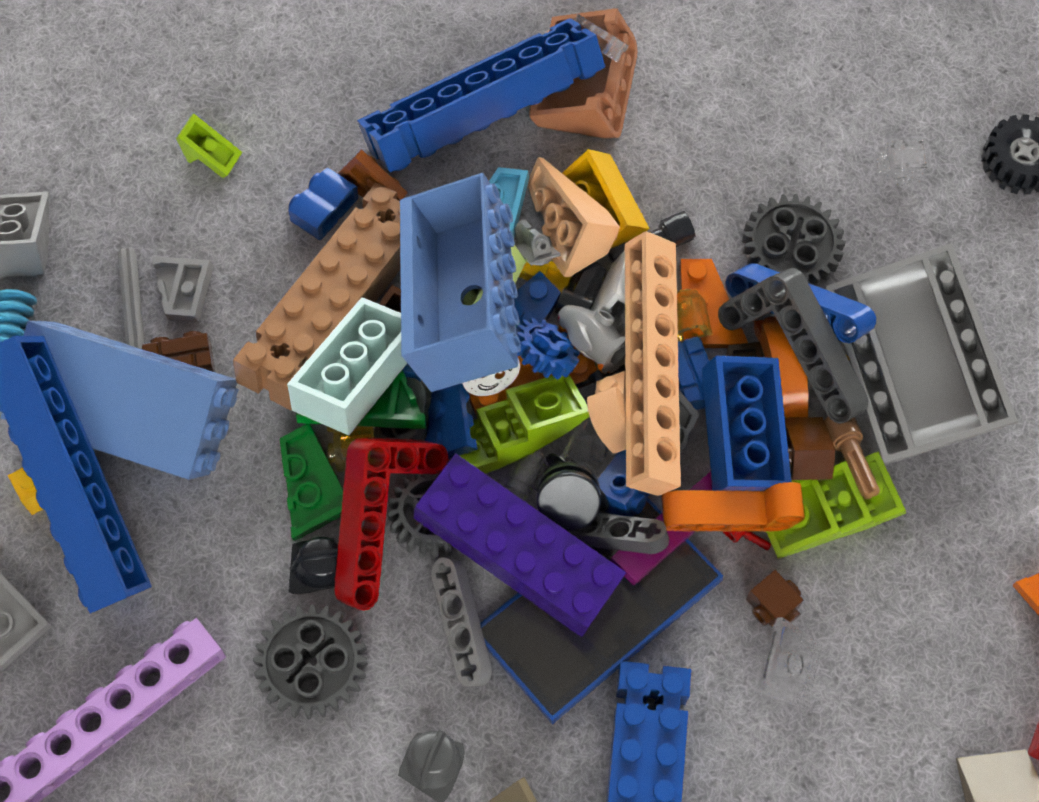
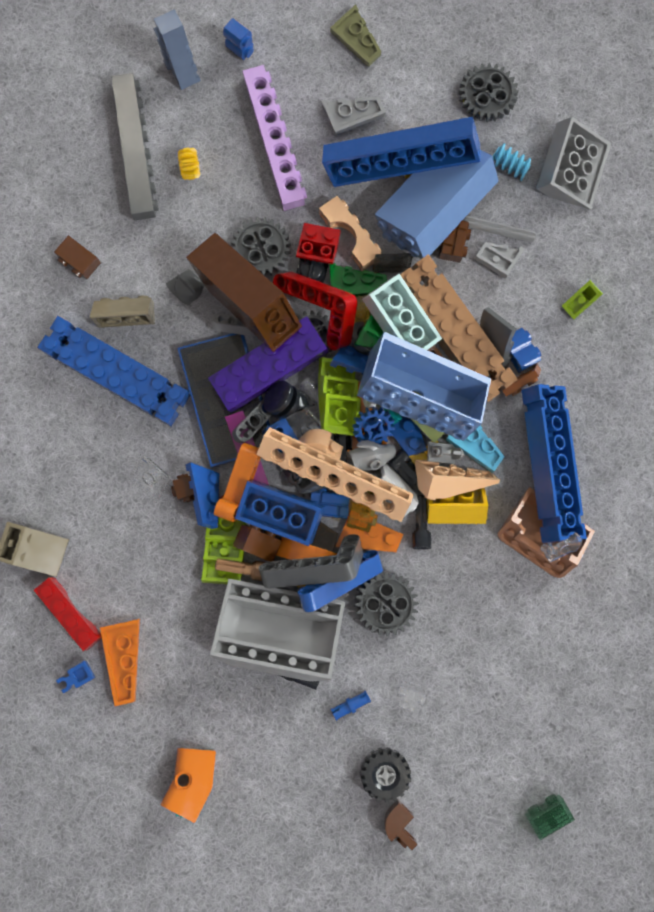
camera: 115 degrees right, 15 degrees up
(250, 488) = (336, 215): none -> light nougat arch
(256, 435) = (392, 262): none -> clear smoke tile
(272, 560) = (318, 243): none -> red slope
(313, 226) = (499, 332): none -> dark grey slope
(416, 623) = (244, 291): none -> reddish brown container
(765, 562) = (206, 492): none -> blue wing
(959, 234) = (350, 705): none -> blue pin

